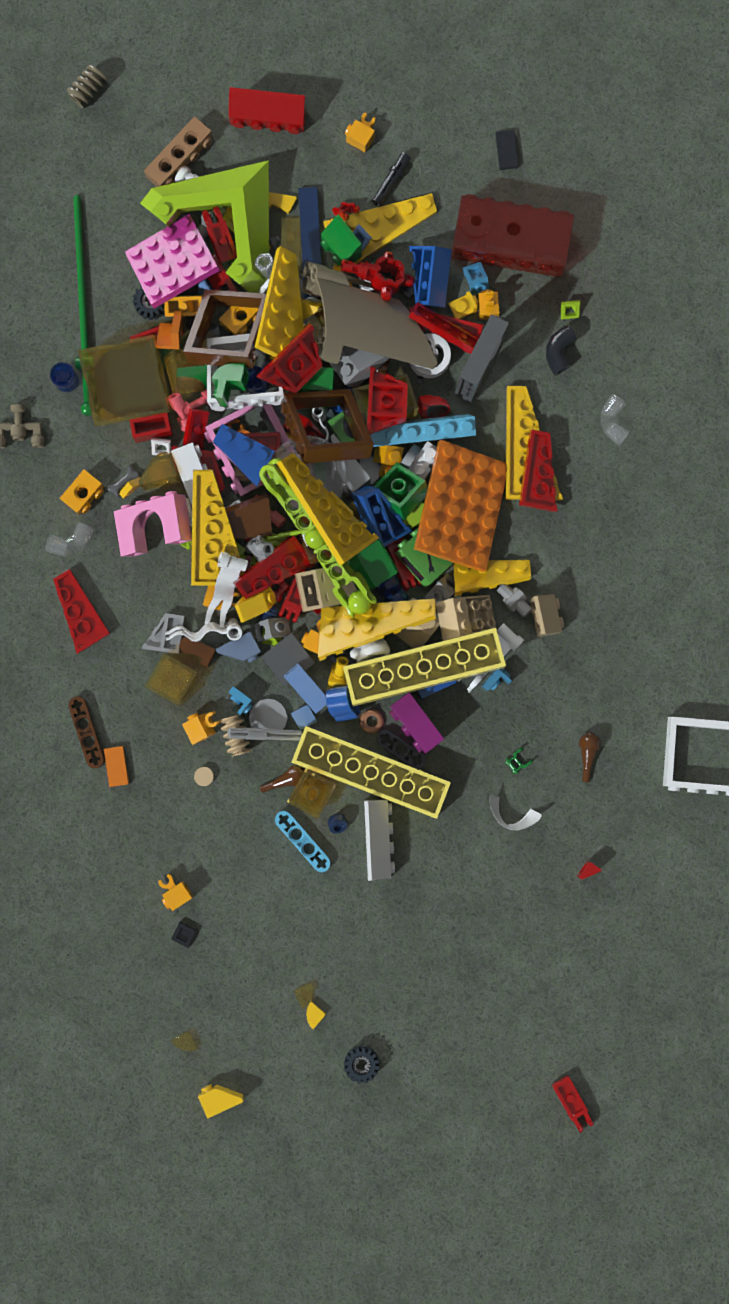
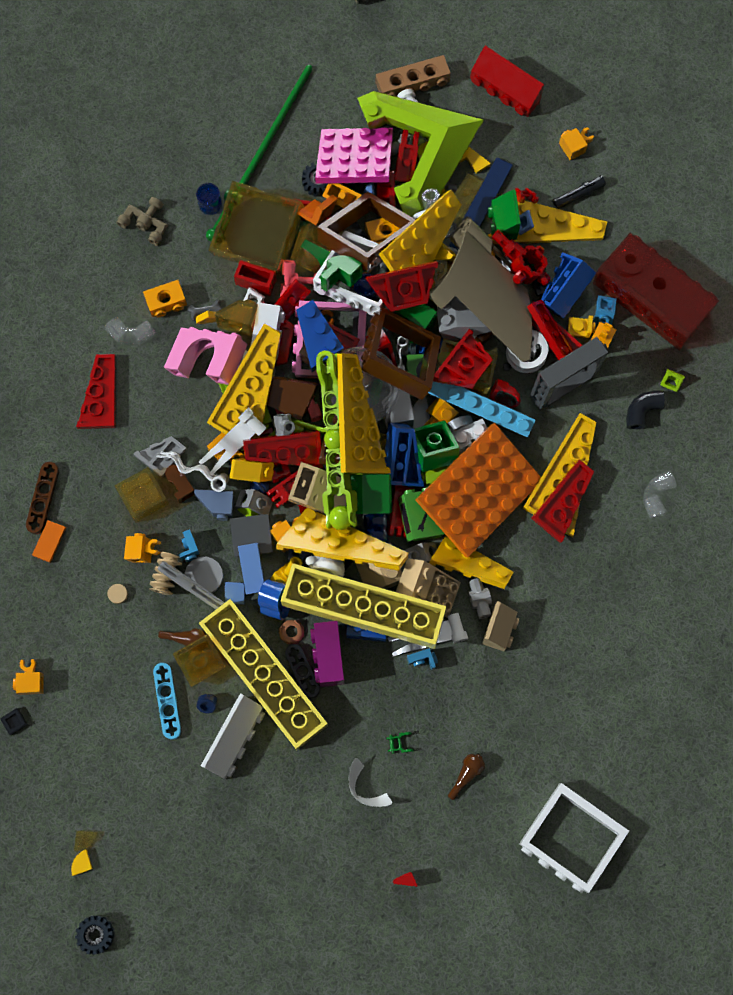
camera: 30 degrees right, 10 degrees down
(506, 150) = (692, 222): black tile -> none

